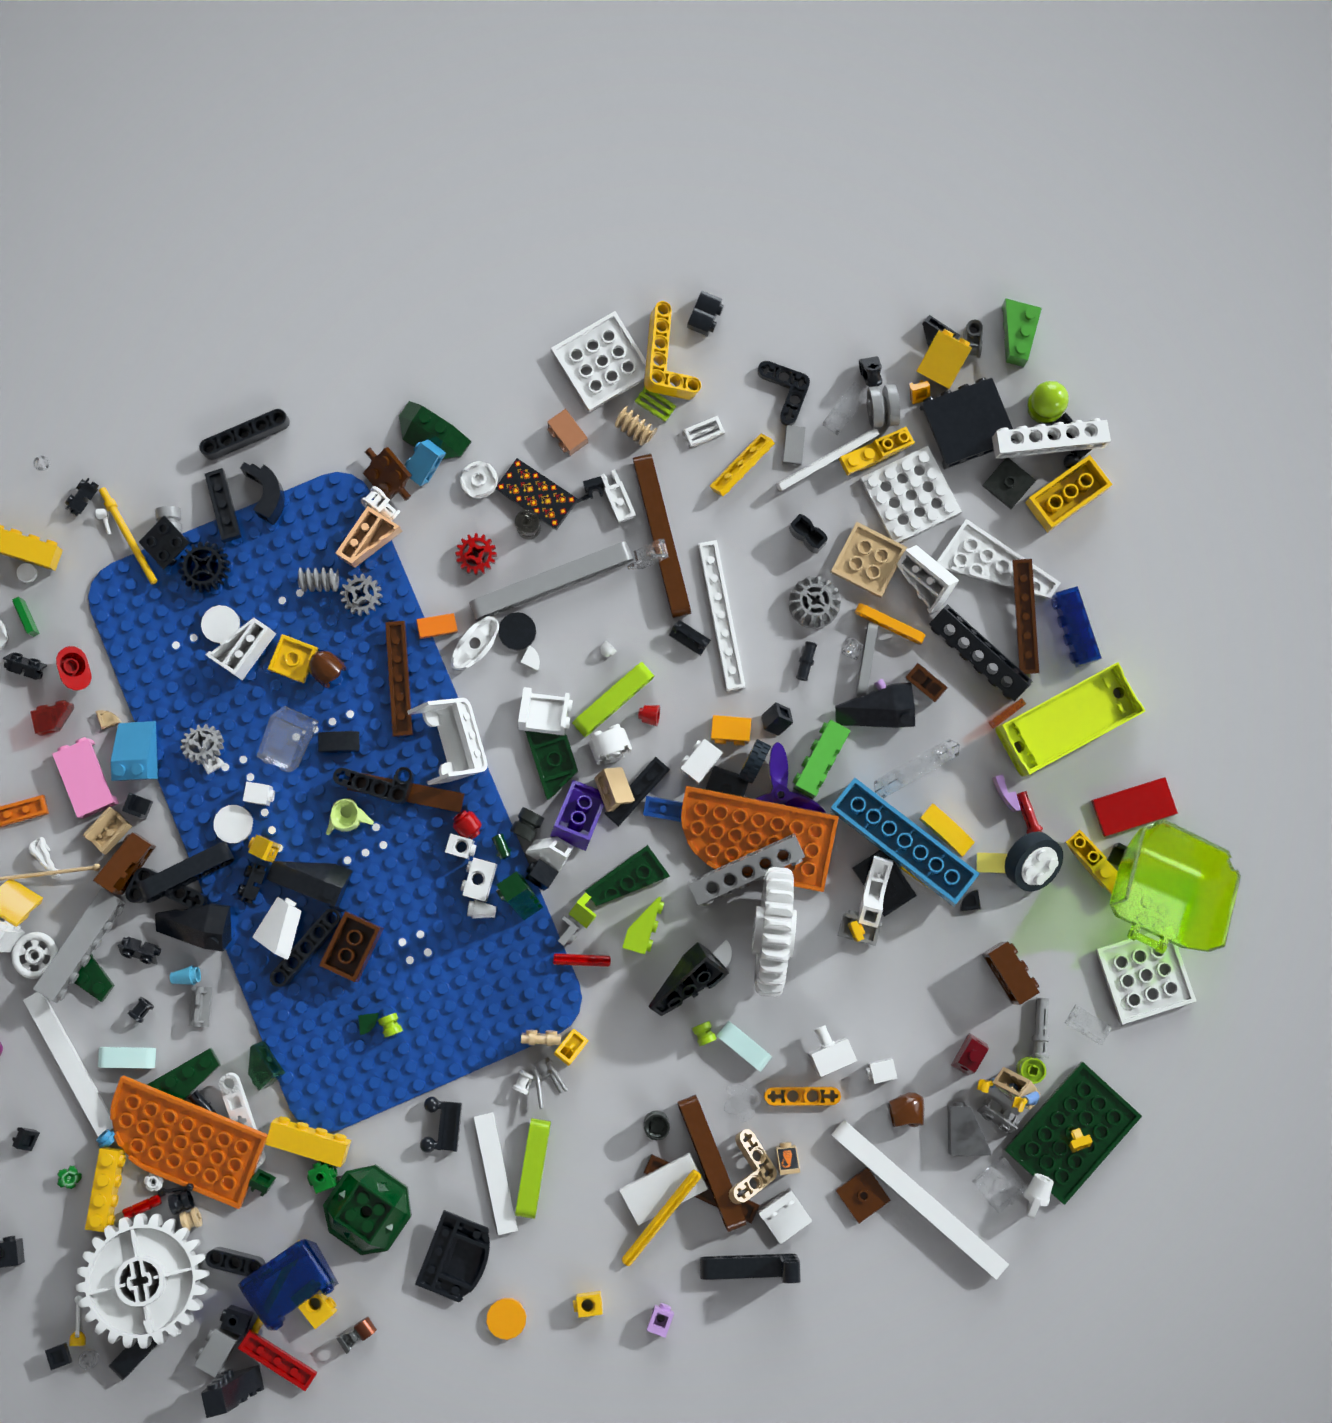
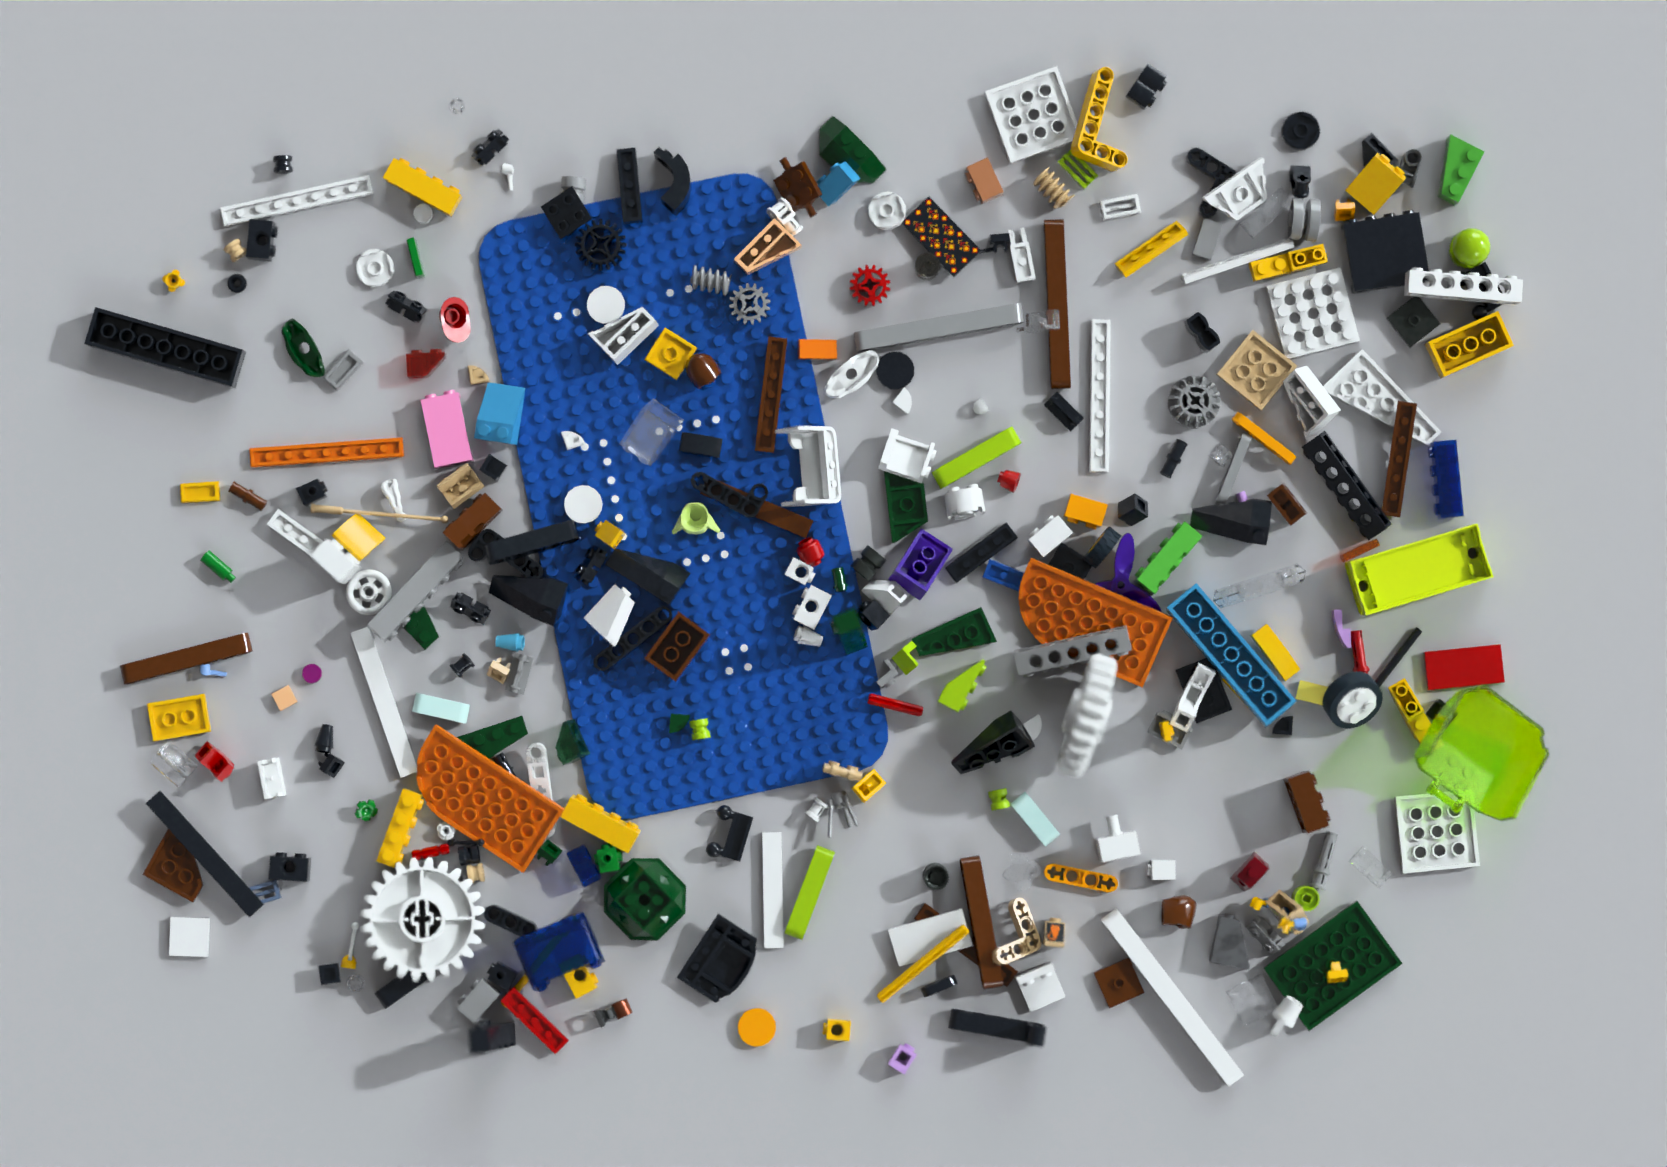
camera: 10 degrees right, 5 degrees up
(15, 1113) = (325, 739): none -> black cone
(106, 1138) = (409, 780): dark azure plate -> none
(111, 506) = (518, 163): yellow bar -> none
(178, 1008) = (499, 671): none -> tan tile
(196, 750) = (559, 424): light grey gear -> none
(235, 434) = (653, 115): black beam -> none
(258, 793) = (614, 480): white brick -> none
(299, 1189) = (584, 865): none -> clear blue brick
(613, 788) = (959, 545): tan panel -> none
(682, 1237) = (939, 985): none -> black beam
(816, 393) = (1240, 192): none -> white wing
(861, 326) = (1300, 130): none -> black tile
(1068, 809) = (1398, 656): none -> black bar

